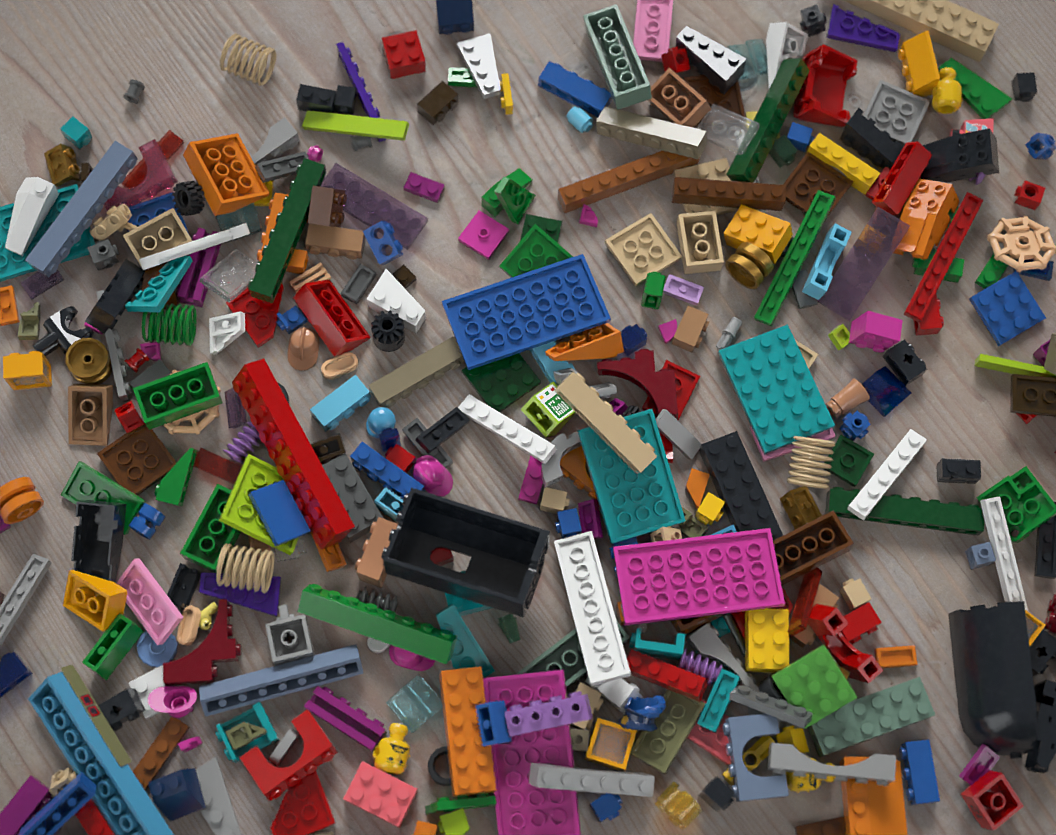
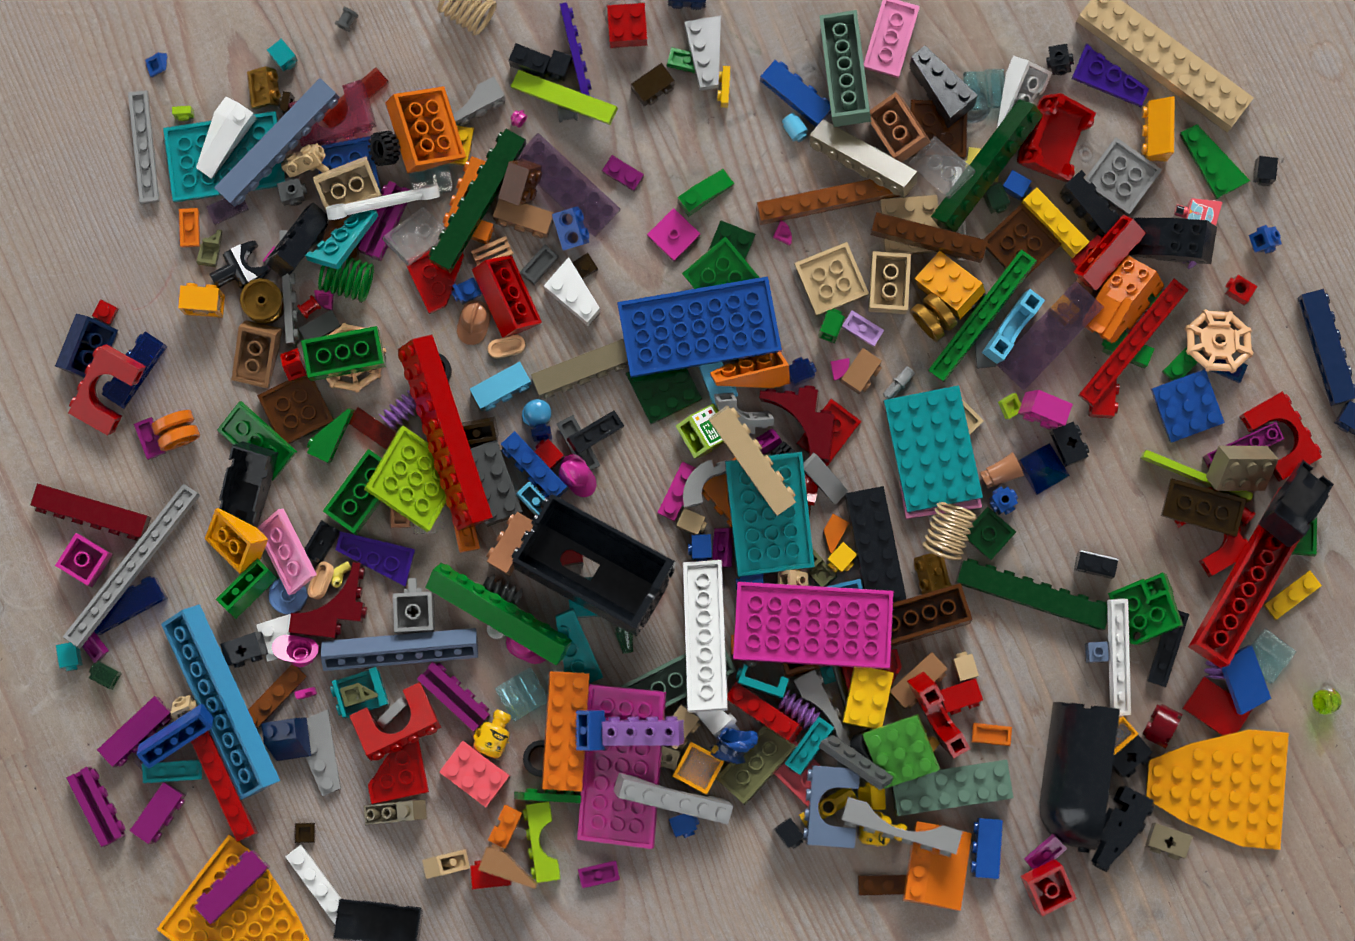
camera: 15 degrees right, 10 degrees up
(96, 715) = (222, 651): olive sticker -> none
(148, 514) = (292, 478): blue wheel -> none
(225, 330) = (399, 292): white wing -> none
(235, 411) = (397, 380): clear purple plate -> none
(243, 572) = (397, 546): tan piece -> none
(279, 513) = (423, 489): blue tile -> none
(280, 167) = (483, 129): dark grey plate -> none
(388, 331) = (559, 331): black gear -> none
(507, 429) = (658, 444): white plate -> none
(513, 198) = (710, 205): green wing -> none
(675, 60) = (906, 81): red brick -> none
(678, 805) = (751, 836): clear yellow brick -> none
(805, 602) = (912, 667): clear red tile -> none
(886, 474) = (1023, 555): white plate -> none
(947, 93) = (1182, 165): yellow piece -> none

